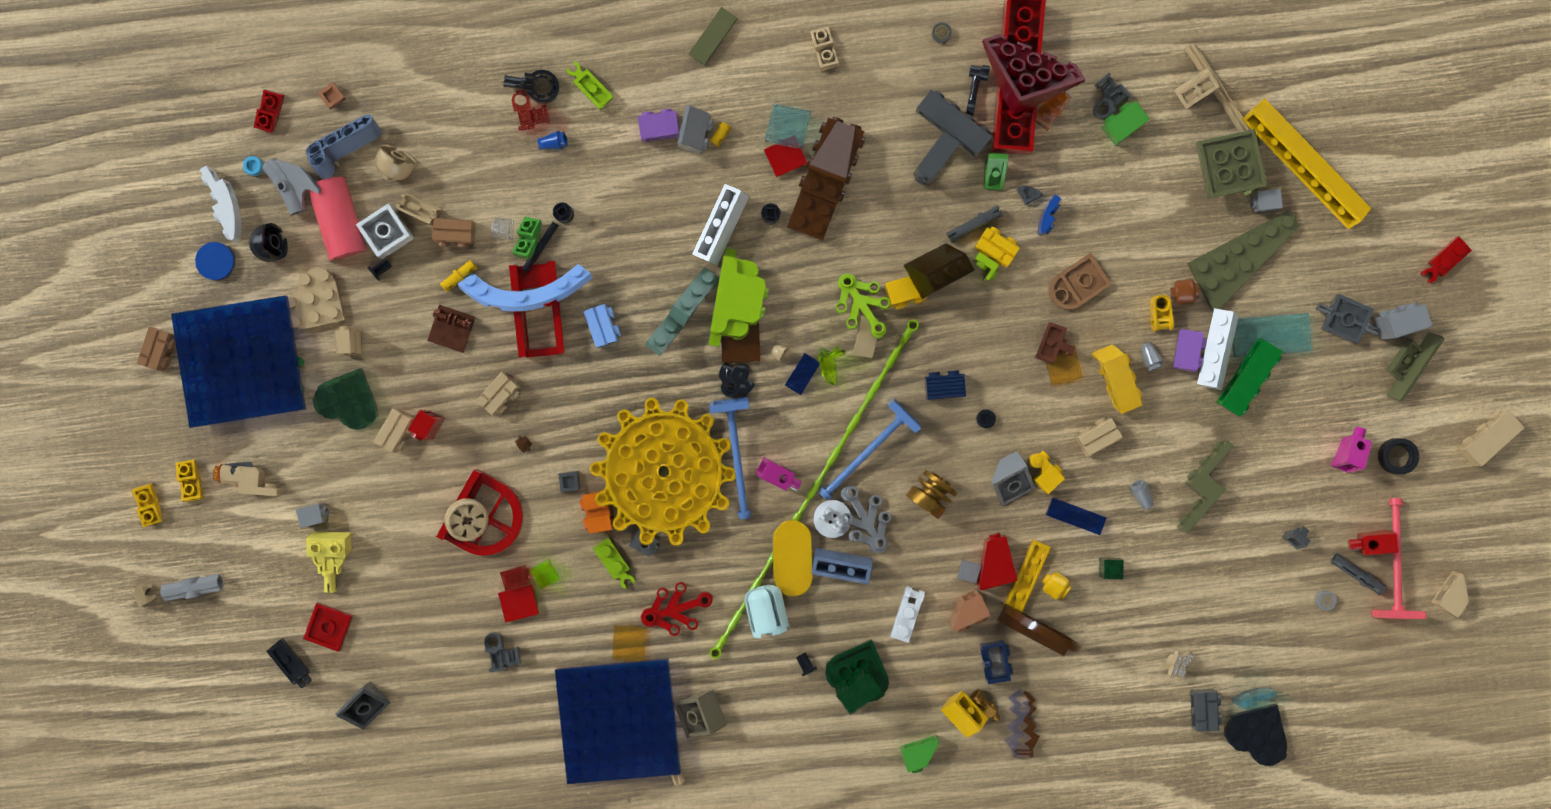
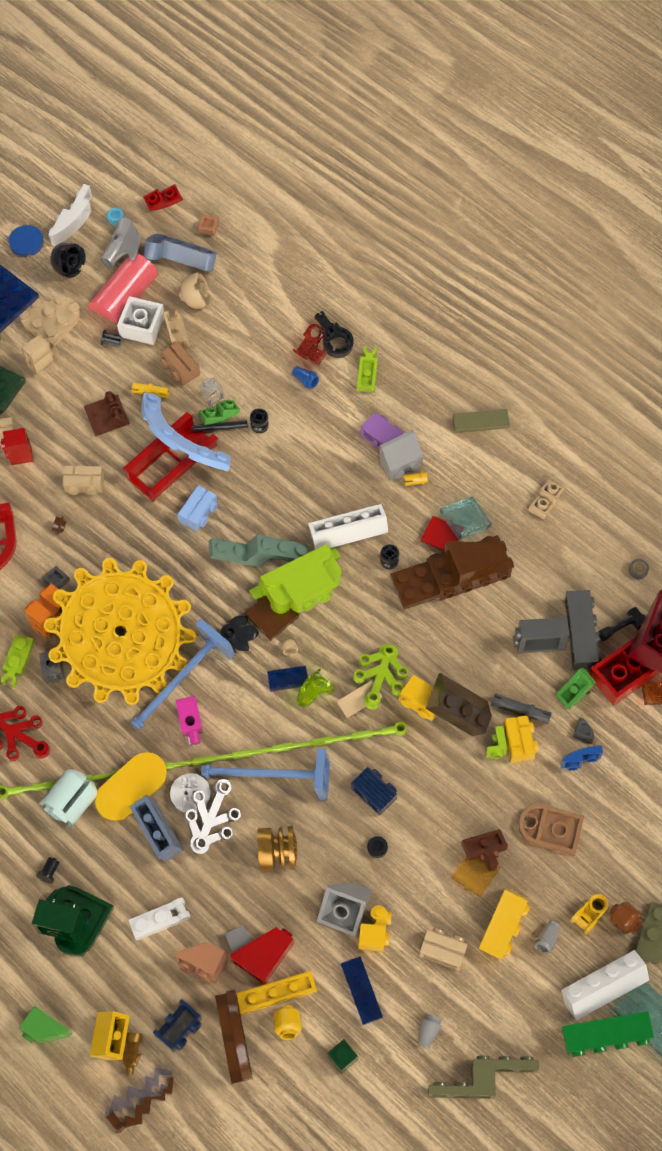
camera: 55 degrees right, 25 degrees down
(1188, 350) = (581, 960): medium lavender brick -> none

